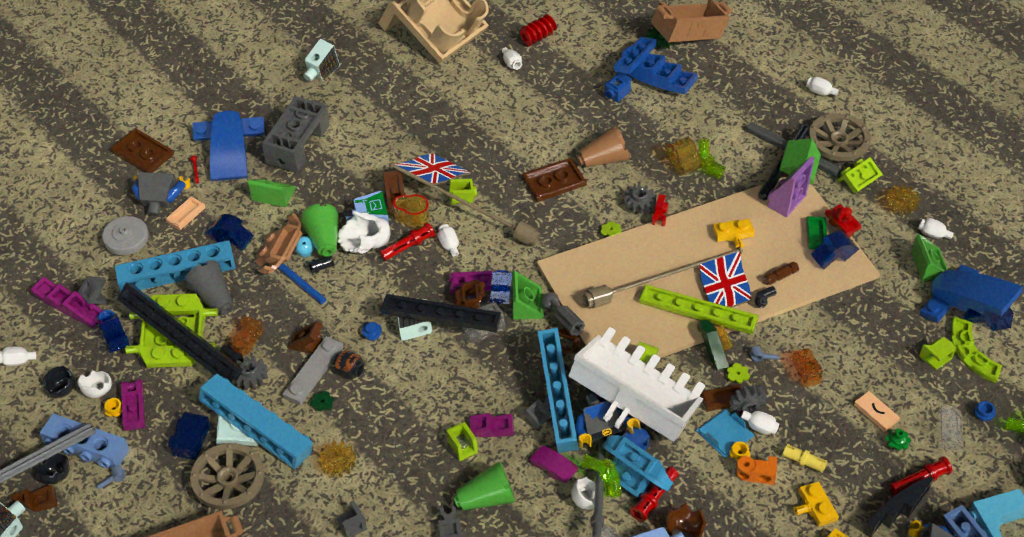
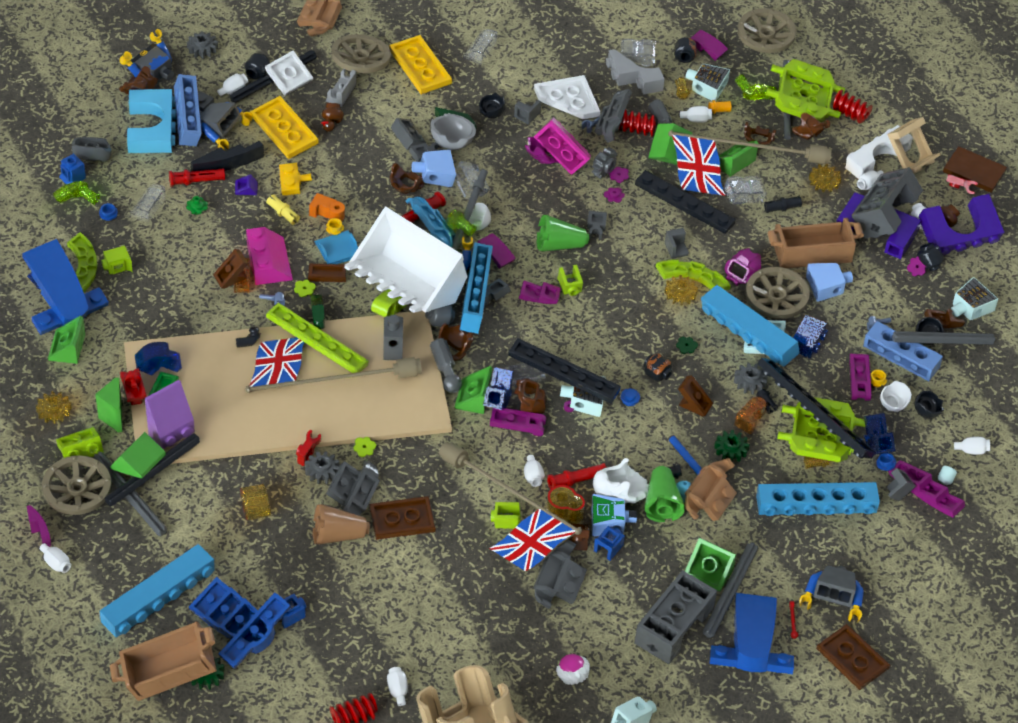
camera: 170 degrees left, 0 degrees up
(49, 320) = (947, 475): none -> light aqua piece
(125, 235) = (869, 546): light grey wheel -> none
(168, 509) = (827, 280): none -> light blue torso
(185, 213) = (805, 566): light nougat tile -> none
(210, 286) = (784, 463): dark grey cone -> none
(230, 228) = (762, 520): clear blue brick -> none
(254, 173) = (730, 590): none -> dark grey axle
(263, 299) = (731, 446): none -> dark green gear
(272, 504) = (746, 259): none -> magenta helmet
(312, 371) = (698, 368): light grey plate -> none
(322, 496) = (693, 270): none -> lime tile
(366, 185) = (610, 539): none -> blue window
(376, 95) = (573, 669): none -> hair
(402, 149) = (559, 576): none -> dark grey plate
(604, 189) = (354, 487): none -> dark grey plate
(623, 312) = (393, 331): none -> dark grey torso
(709, 164) = (232, 494): clear neon green arm -> none
(725, 340) = (305, 312): clear yellow pin -> none
(727, 80) = (157, 591): none -> dark azure brick
(733, 231) = (244, 408): yellow plate -> none
(748, 399) = (310, 252): dark grey gear -> none
(761, 422) = (306, 240): white plant -> none
(781, 273) = (220, 356): reddish brown axle -> none
(792, 394) = (268, 256): none -> dark pink slope
(814, 349) = (231, 270): none -> reddish brown slope
(849, 194) = (110, 404): none -> bright green slope
(852, 107) = (37, 524): none -> magenta slope
(860, 483) = (246, 186): none -> dark purple slope
(876, 411) = (200, 233): light nougat tile -> none
(934, 229) = (42, 374): white plant -> none

